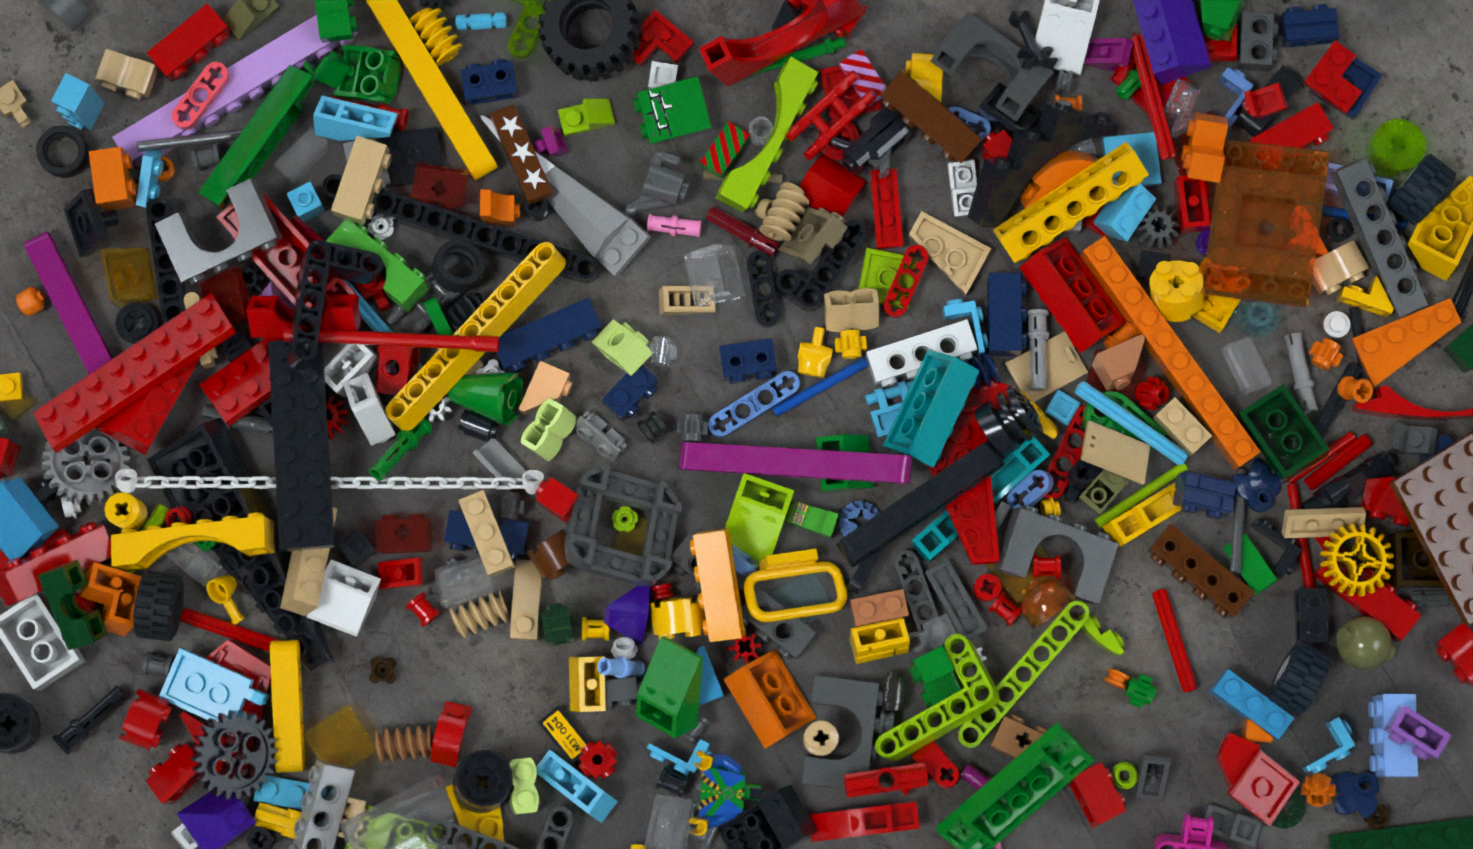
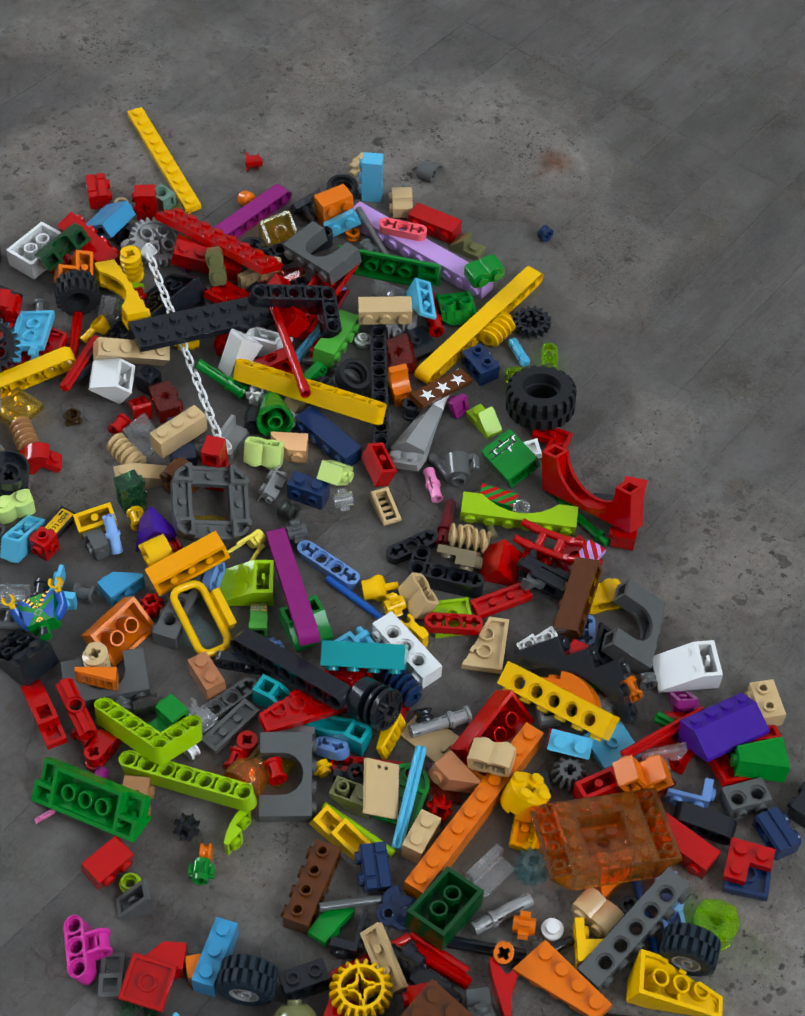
camera: 70 degrees right, 30 degrees down
(192, 391) = (217, 269): none -> olive brick
(304, 635) = (78, 366): none -> red axle
(306, 202) = (359, 291): medium azure brick -> none
(330, 70) = (448, 284): green panel -> none
(620, 525) = (218, 512): lime plate -> none
(623, 284) = (378, 464): none -> red brick
(624, 648) = (128, 538): white plate -> none
(671, 689) = (102, 560): green slope -> none
(685, 485) = (254, 540): none -> light yellow plant
(714, 274) = (410, 515): clear slope -> none
(748, 360) = (357, 549): dark blue brick -> none
(852, 736) = (98, 676): none -> orange slope
(879, 640) = (182, 680): yellow brick -> none
(902, 330) = (419, 632): none -> yellow plate
(958, 309) = (446, 675): medium azure bracket -> none
(1005, 314) = (457, 692): dark blue brick -> none
(1029, 366) = (423, 714): none -> black bush
(1031, 53) = (656, 651): black bar -> none
(1062, 407) = (403, 753): medium azure tile -> none
(1078, 691) = (183, 831): none -> black gear
(1126, 309) = (491, 756): none -> tan brick
(1174, 640) = (250, 887): red axle -> none
(1265, 101) = (698, 808): red bracket -> none

